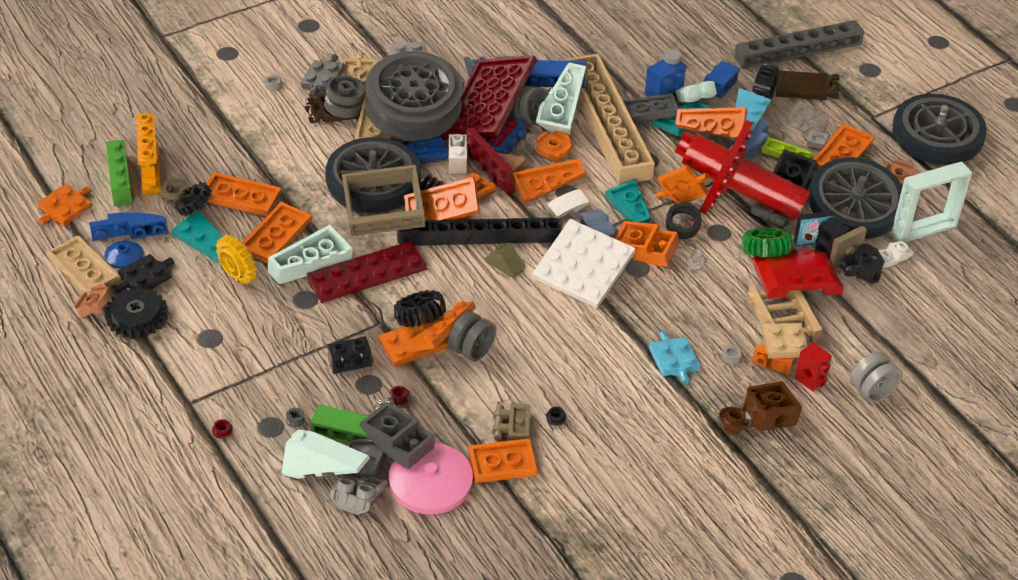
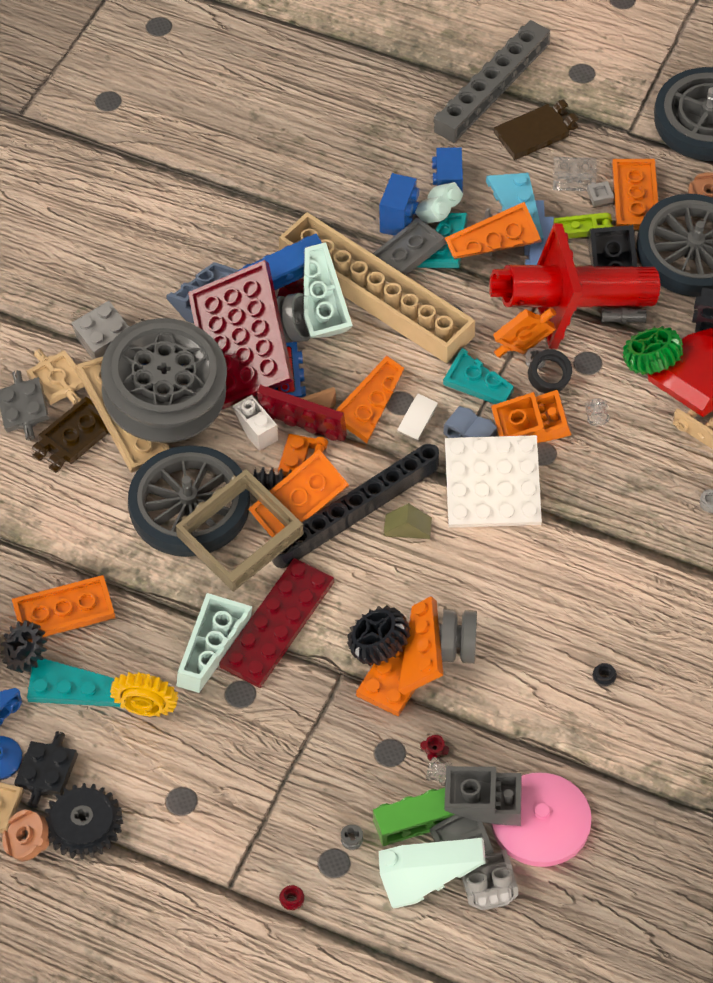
camera: 30 degrees left, 10 degrees up
(276, 231) = (144, 632): orange plate -> none
(344, 96) = (79, 421): dark grey wheel -> none
(349, 355) = (349, 732): black brick -> none
(429, 149) = (219, 434): blue plate -> none
(502, 460) = (595, 756): orange plate -> none
(518, 422) = (575, 703): dark tan plate -> none
(545, 145) = (343, 363): orange plate -> none
(672, 56) = (396, 176): light grey tile -> none
(674, 357) = (661, 536): medium azure plate -> none
(766, 80) = (504, 152): black gear -> none
(807, 227) = (682, 307): tile -> none

